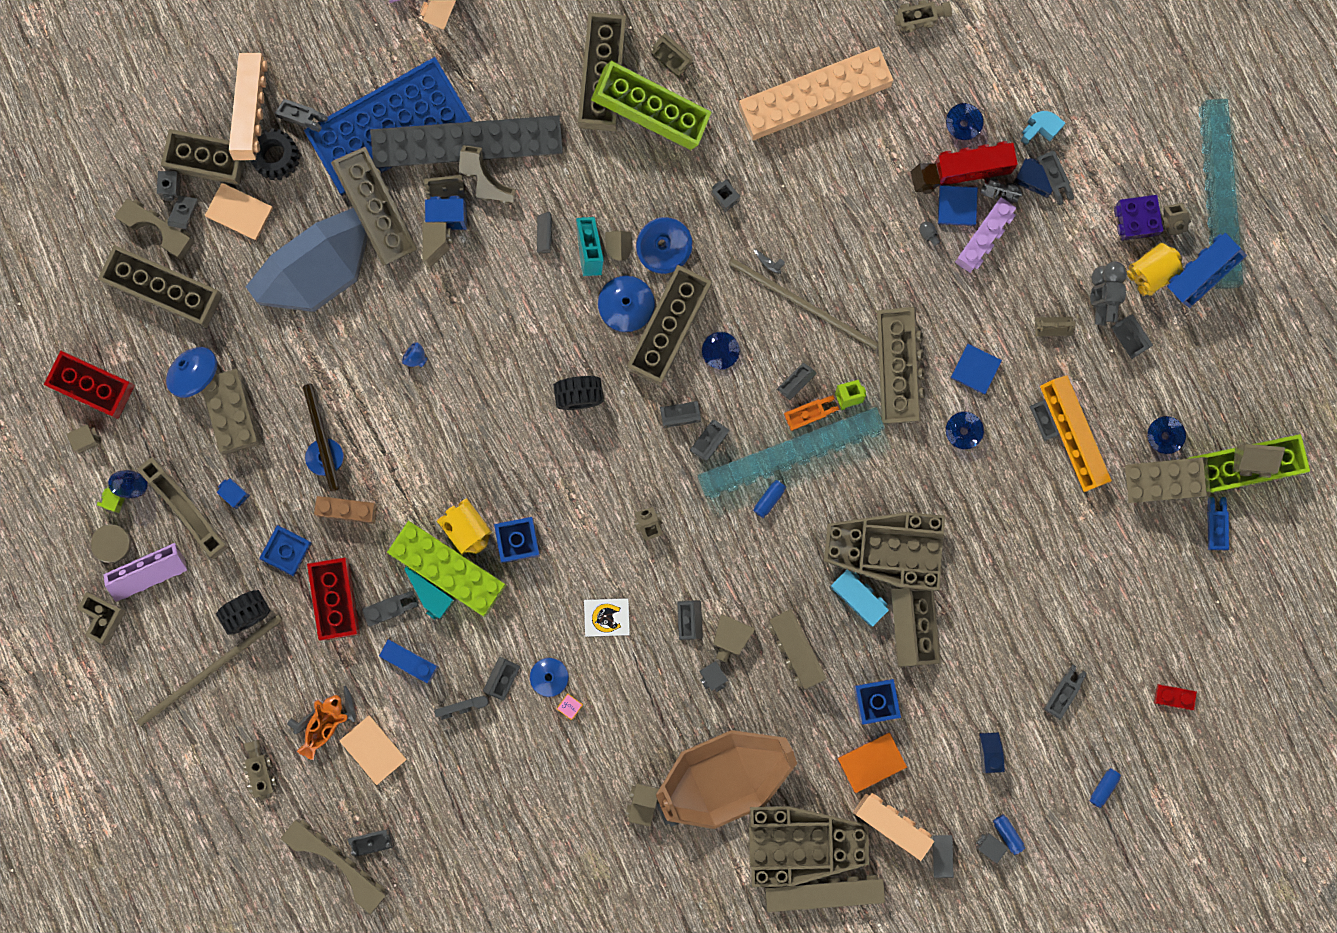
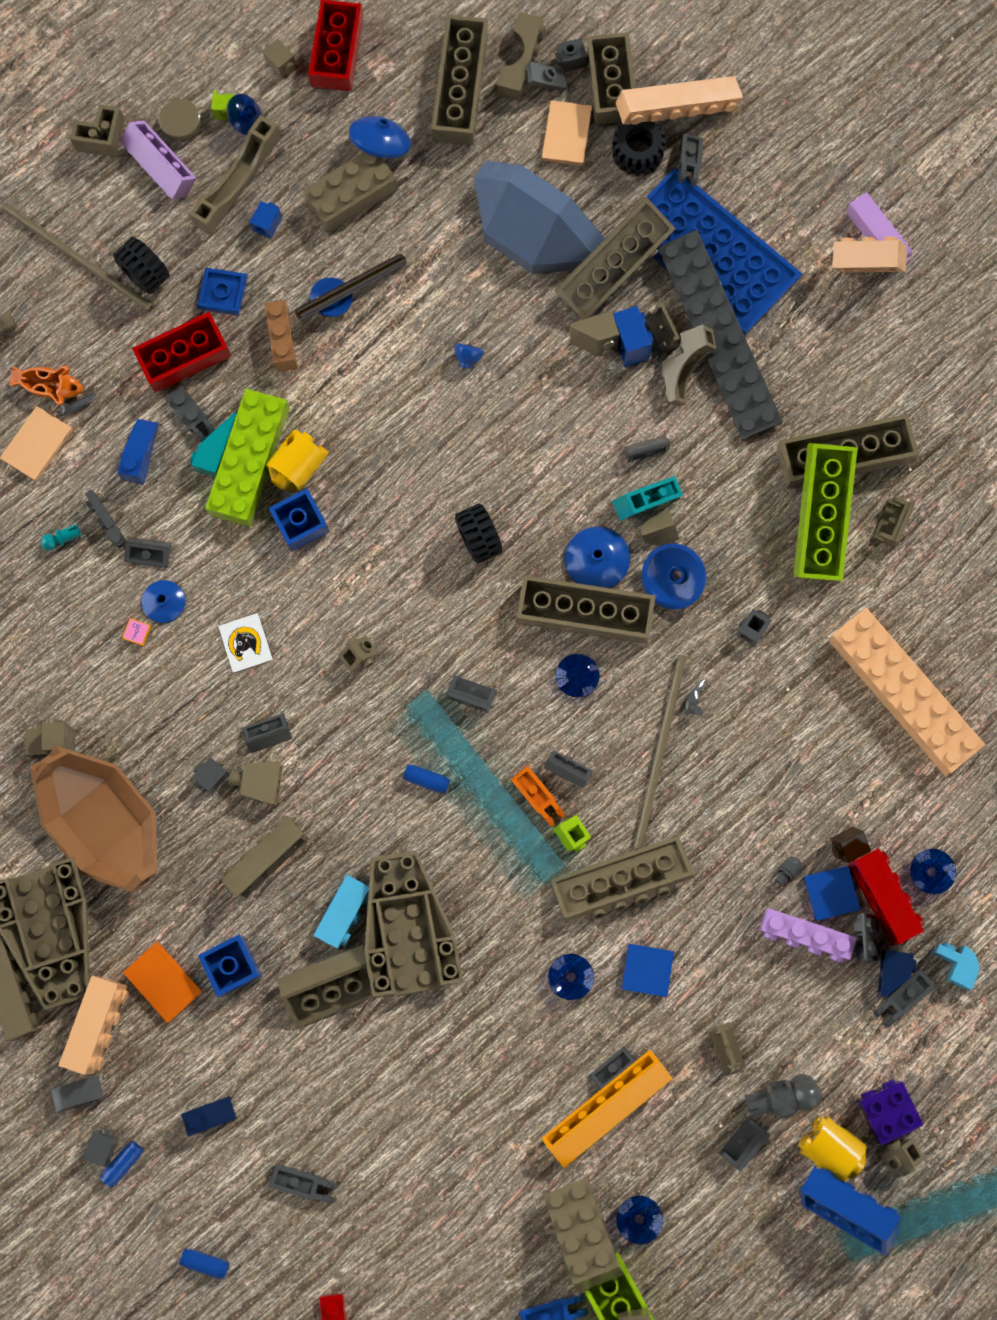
camera: 80 degrees right, 5 degrees down
(298, 727) = (41, 361): dark grey bar -> none
(466, 760) = (62, 536): none -> teal pin
(680, 414) = (491, 652): dark grey hinge -> none

